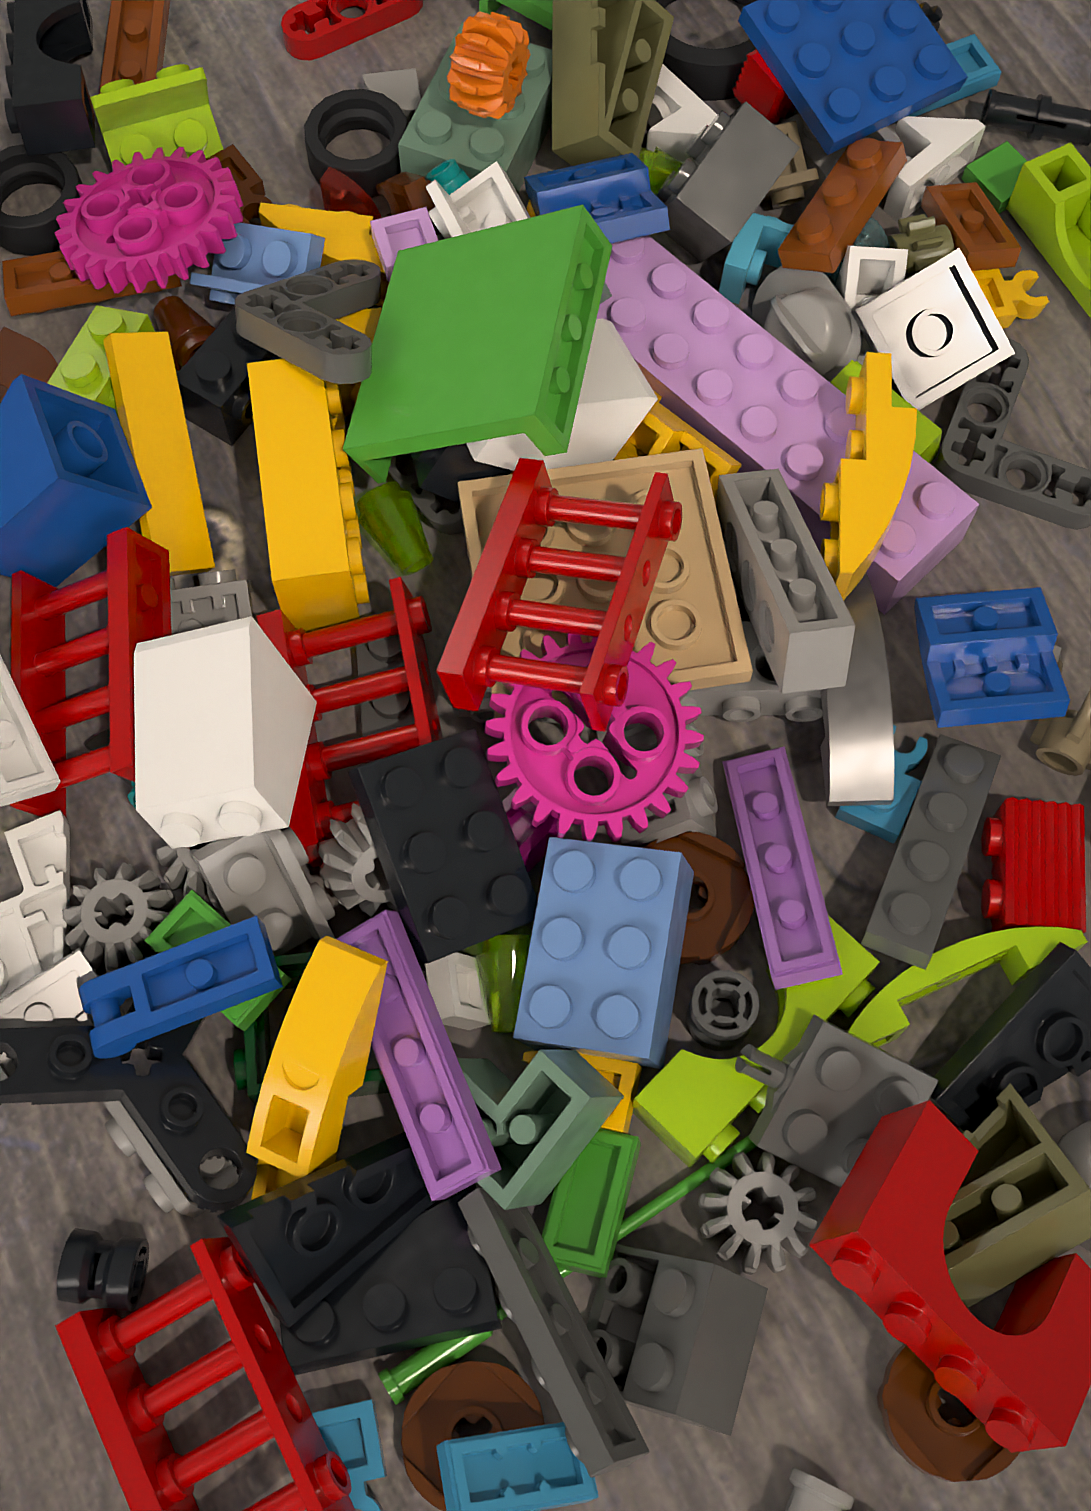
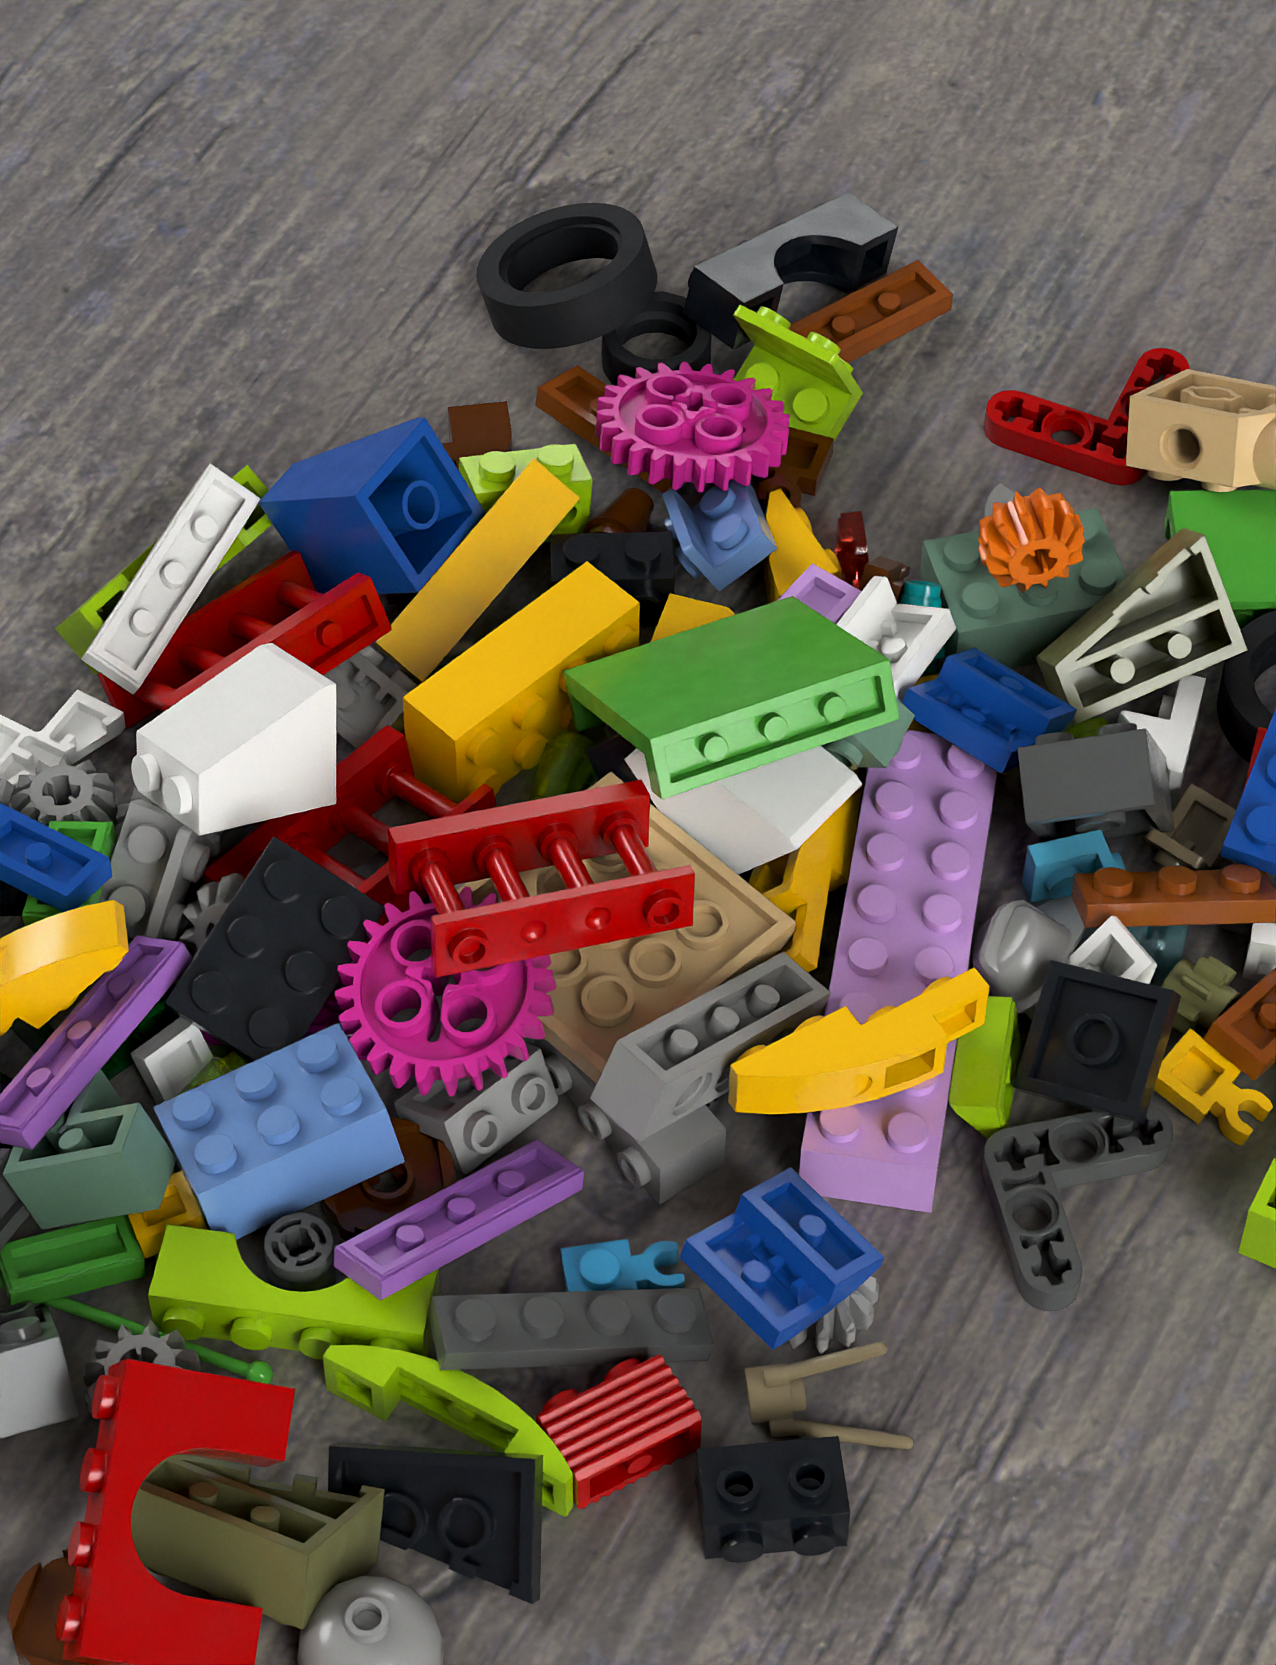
camera: 55 degrees right, 15 degrees down
(299, 316) = (655, 558): dark grey beam -> none
(355, 111) = (910, 489): black tyre -> none
(829, 1097) = (287, 1348): dark grey plate -> none
(859, 716) = (663, 1175): flat silver slope -> none

